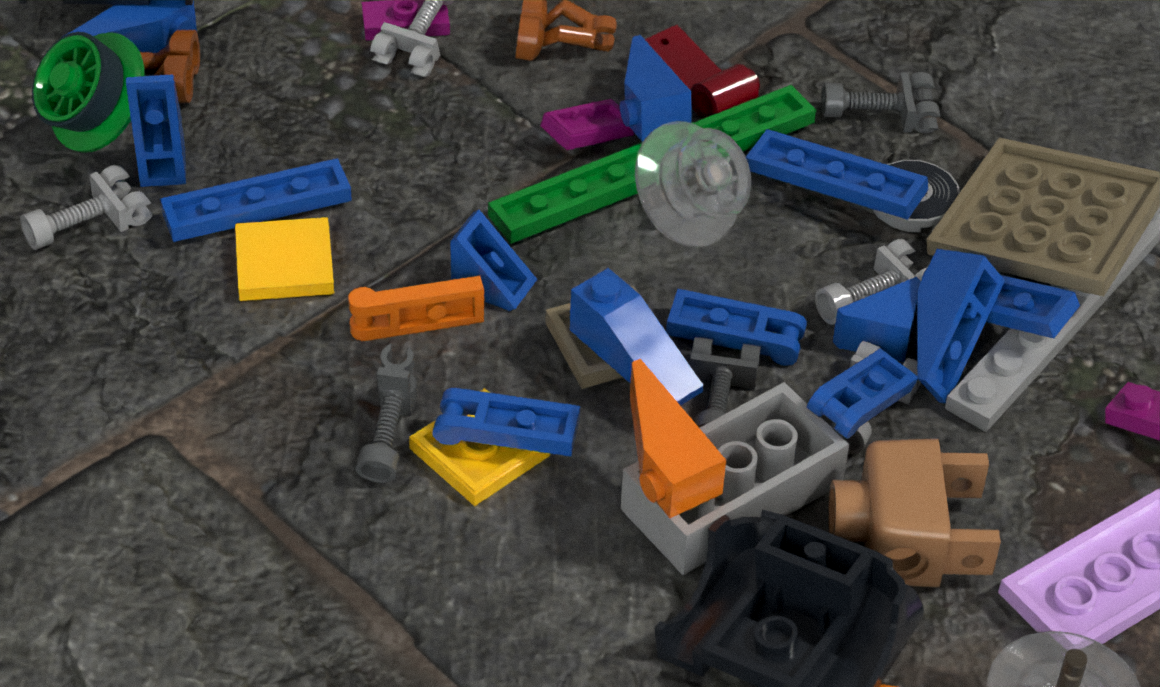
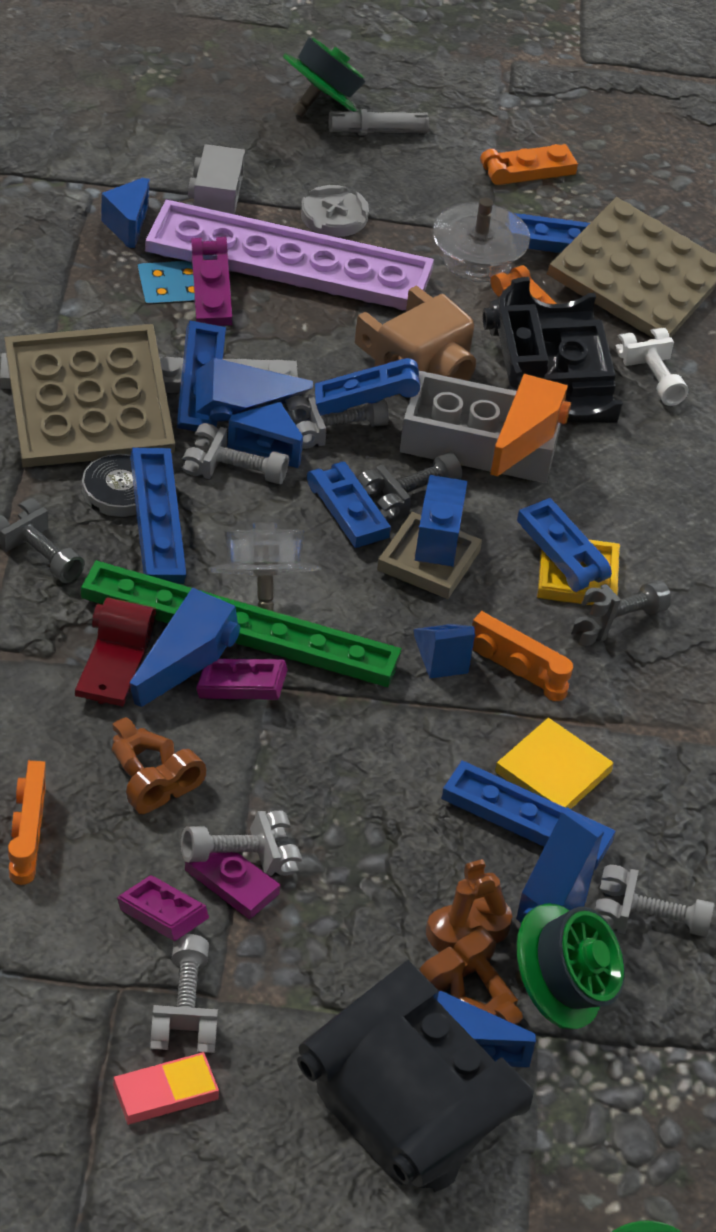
camera: 135 degrees left, 0 degrees up
(207, 94) = (475, 905): none -> dark orange piece

